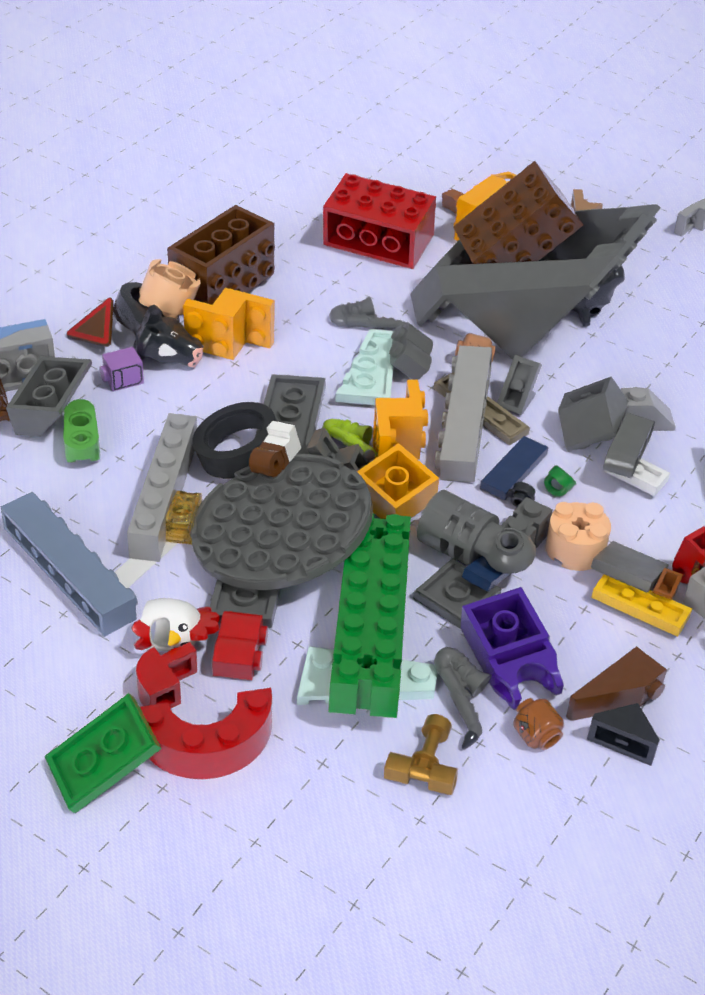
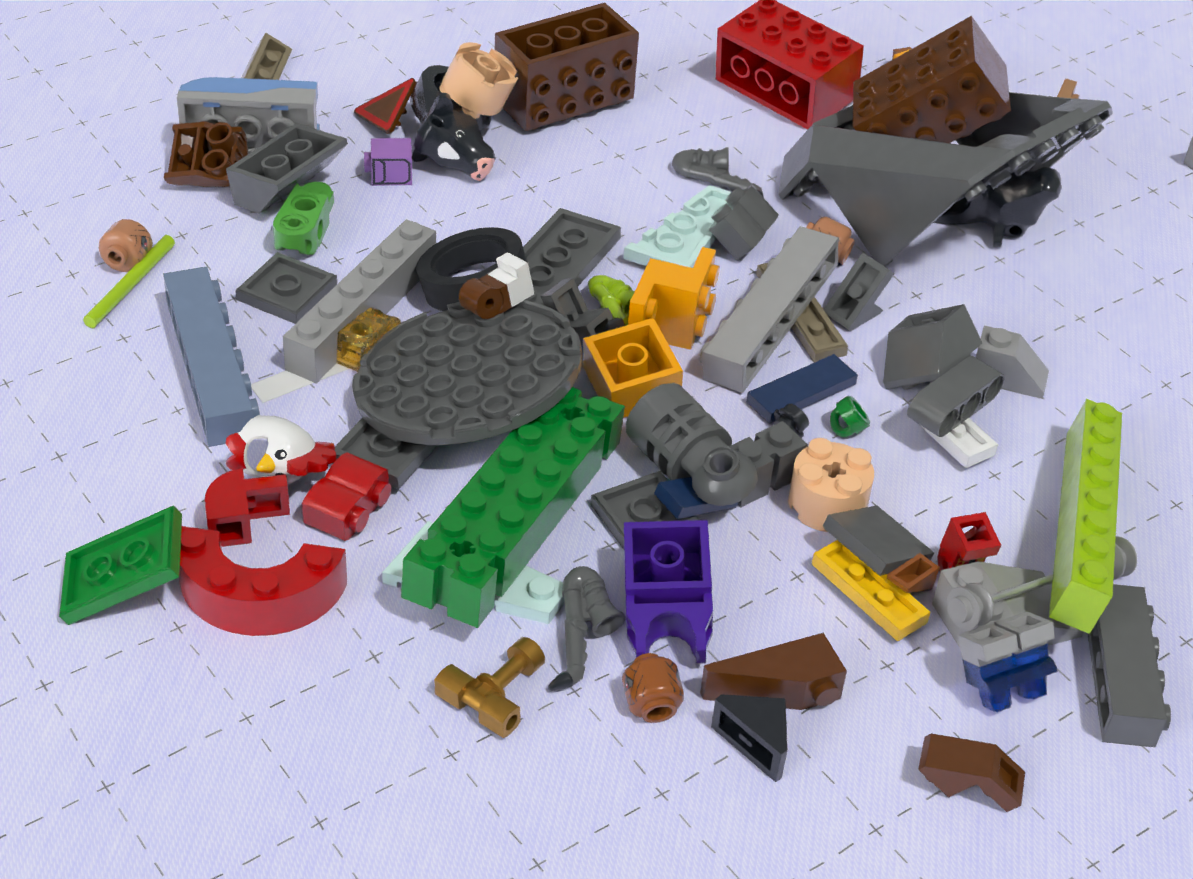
camera: 20 degrees right, 0 degrees up
(94, 491) = (286, 287): none -> dark grey tile
(231, 322) = (539, 138): light orange bracket -> none

